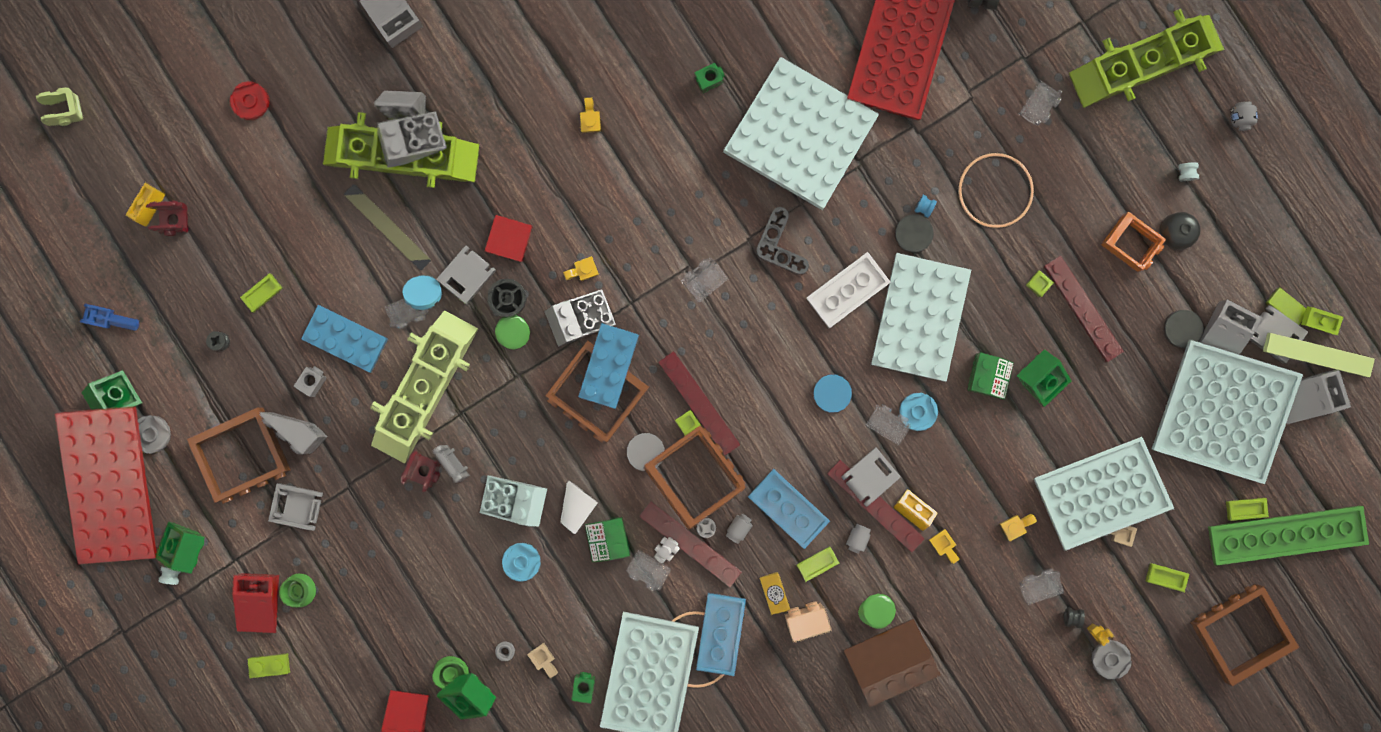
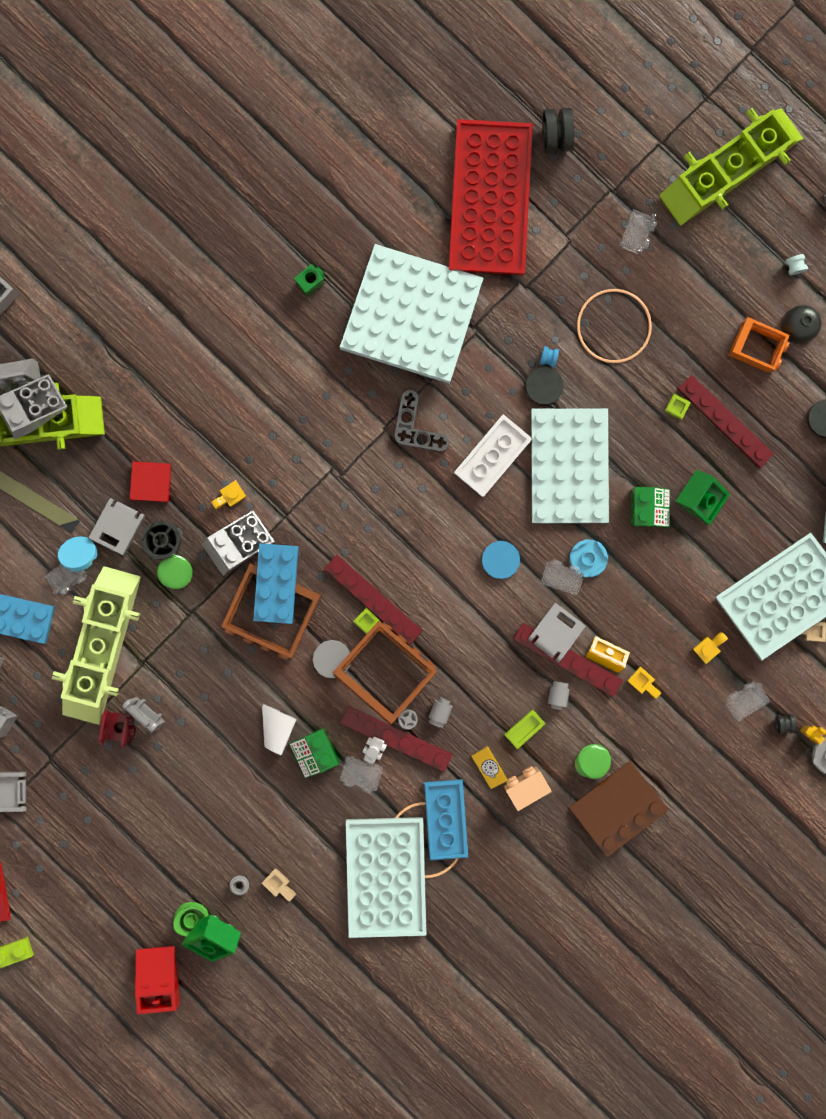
camera: 15 degrees left, 0 degrees up
(297, 591) = (23, 873): bright green piece -> none
(513, 501) = (213, 737): light aqua slope -> none
(521, 562) = (235, 794): medium azure tile -> none
(583, 696) = (324, 911): green brick -> none
(590, 120) = (203, 347): yellow plate -> none
(704, 279) = (350, 477): clear bracket -> none
(788, 508) = (484, 682): dark azure tile -> none

